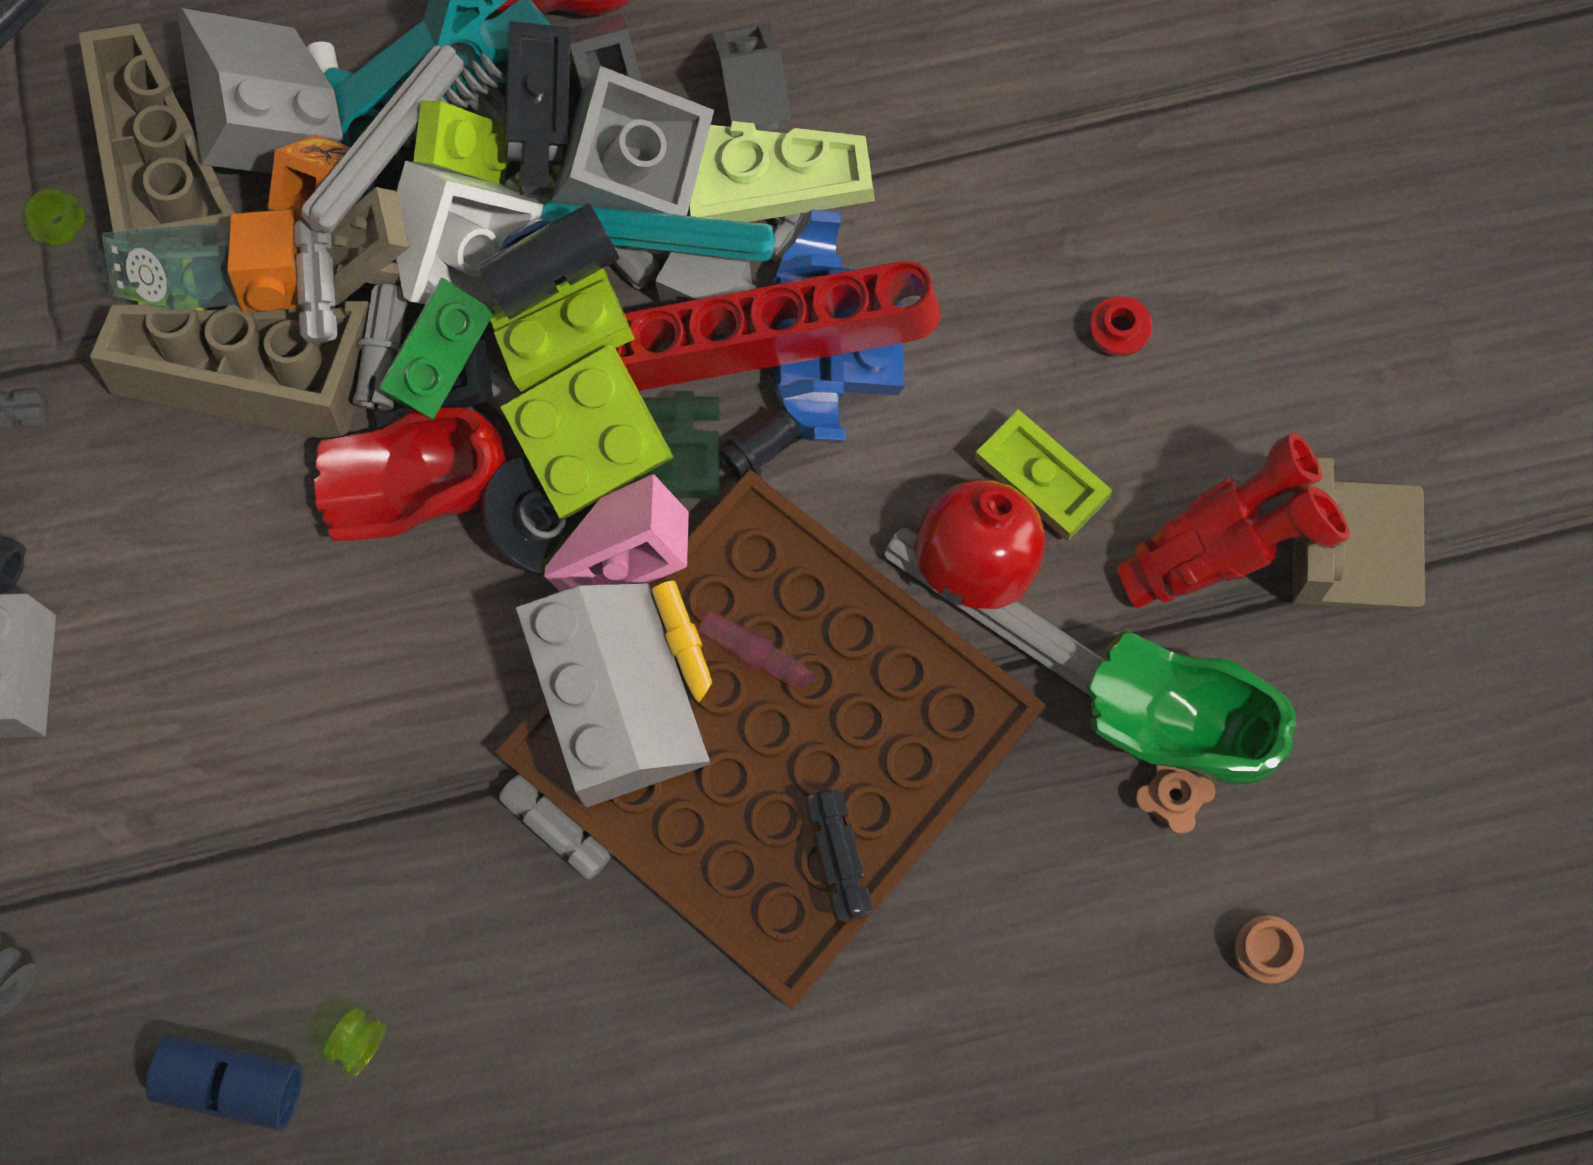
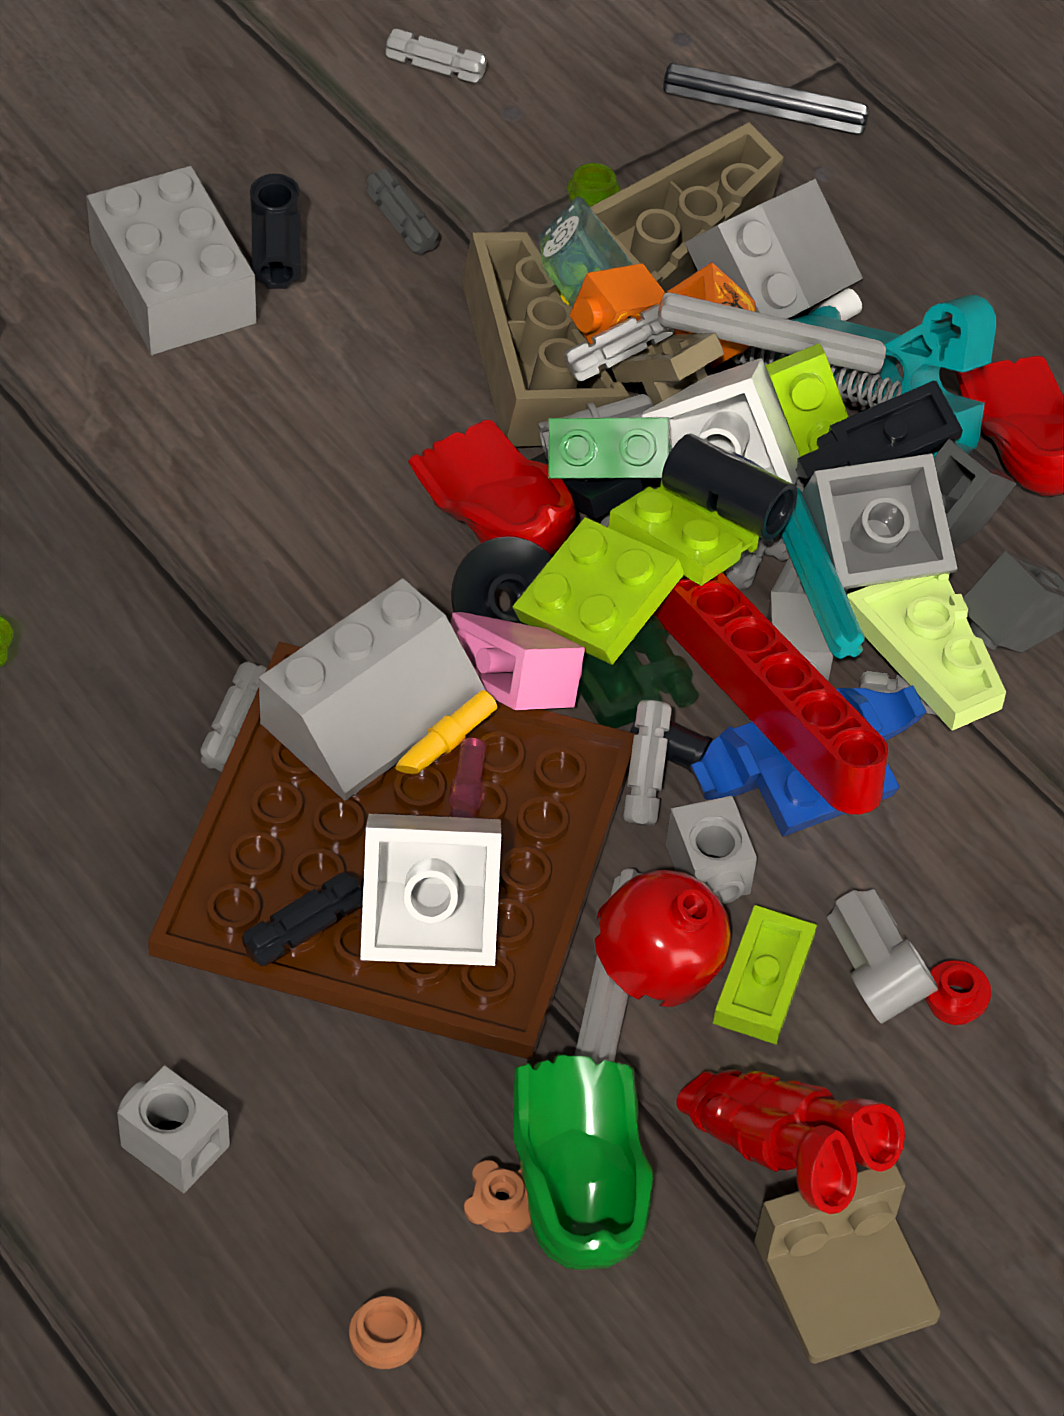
camera: 55 degrees right, 20 degrees down
(787, 474) = (647, 762): none -> light grey axle
(859, 724) = (431, 889): none -> white slope
(890, 439) = (715, 830): none -> light grey brick
(1018, 1035) = (178, 1153): none -> light grey brick
(1088, 371) = (885, 964): none -> light grey piece

